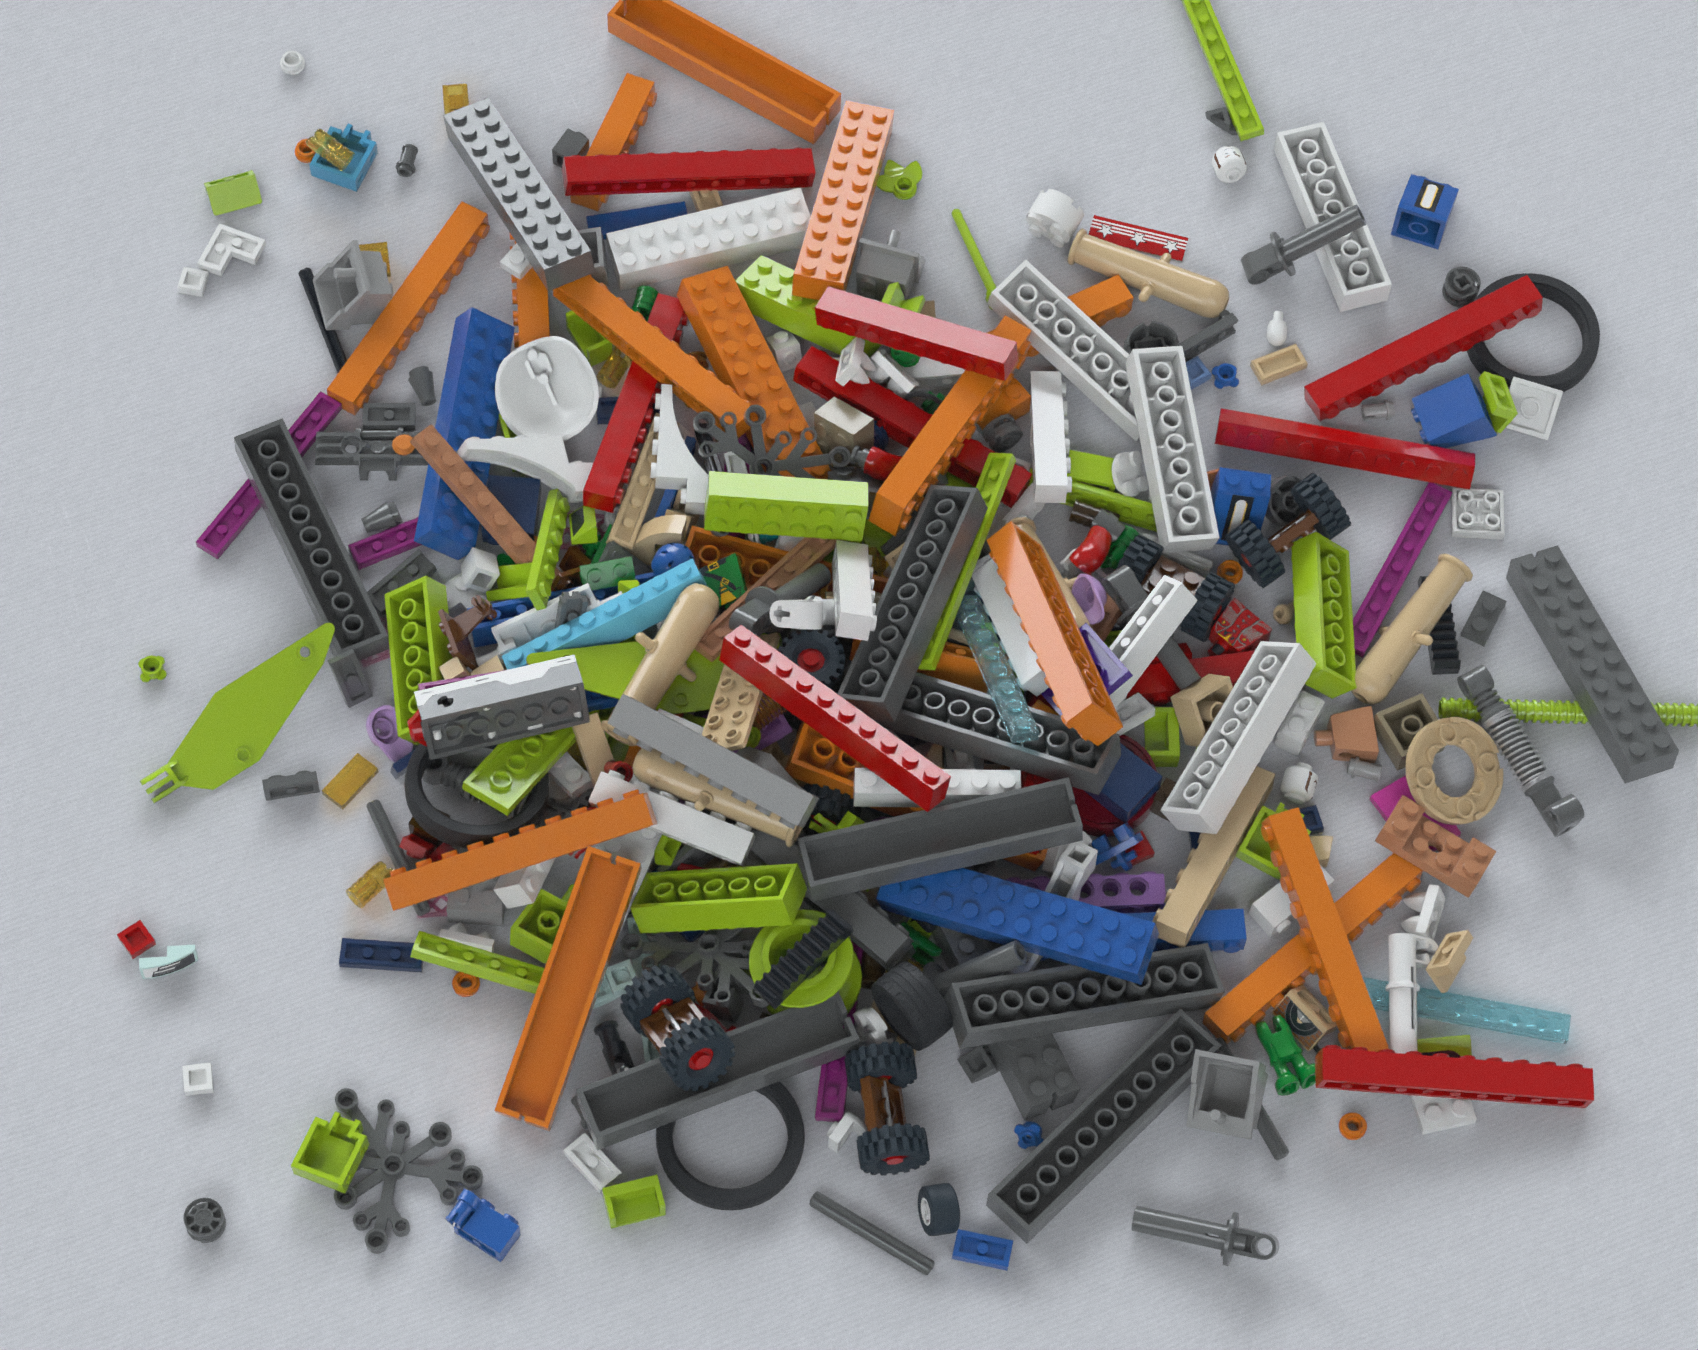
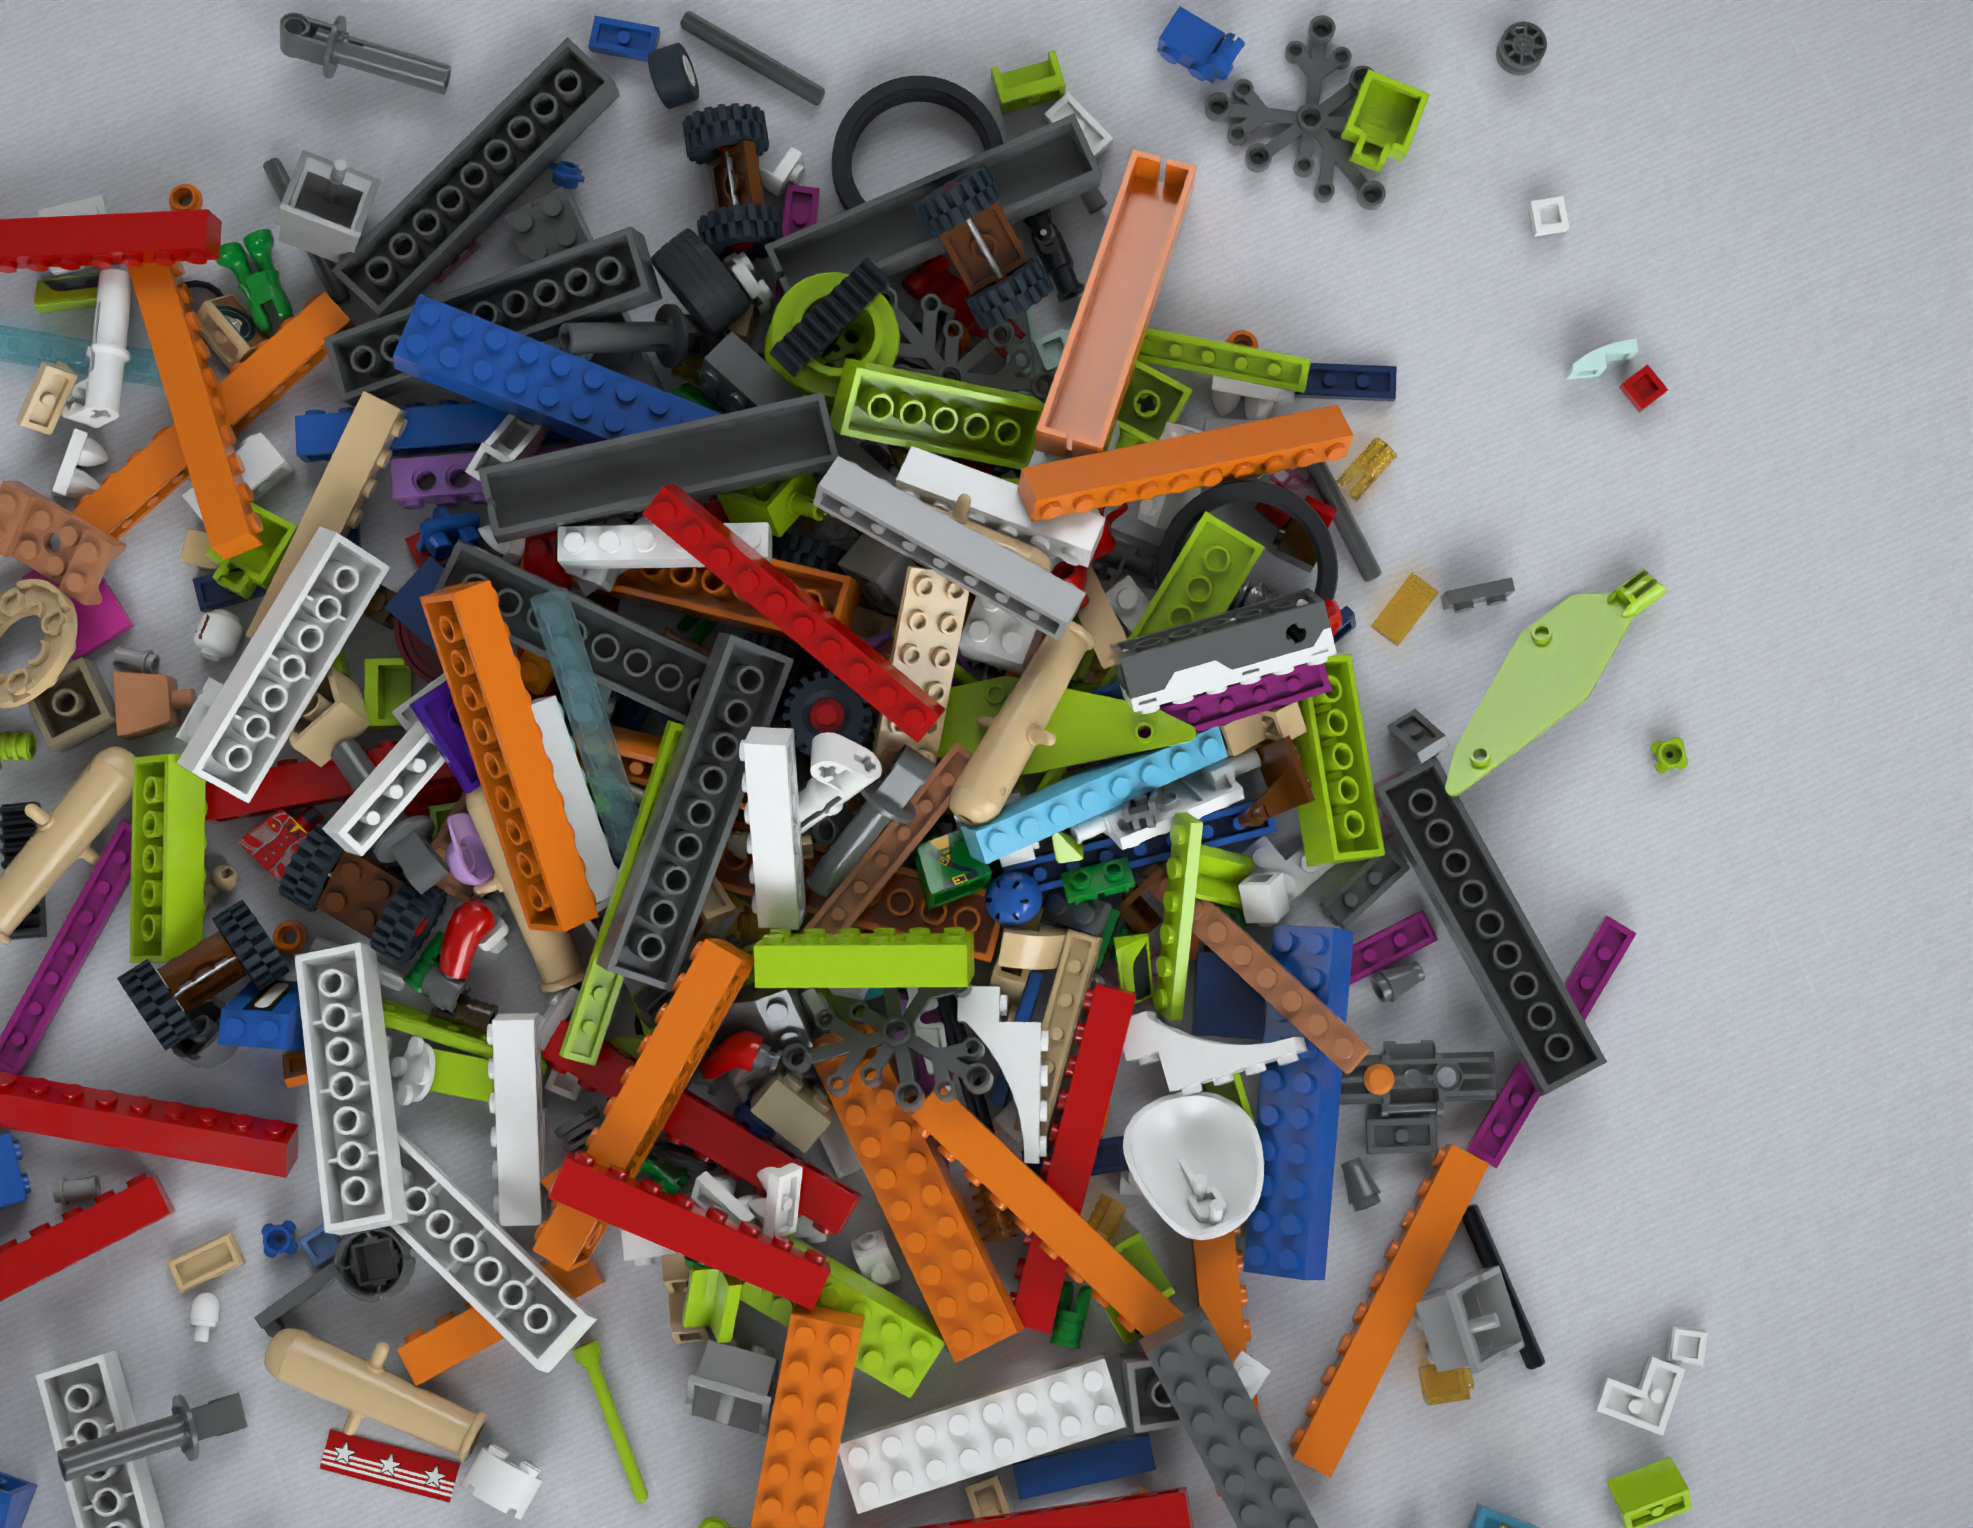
camera: 175 degrees left, 20 degrees up
(387, 739) = (1367, 664): lavender cap -> none

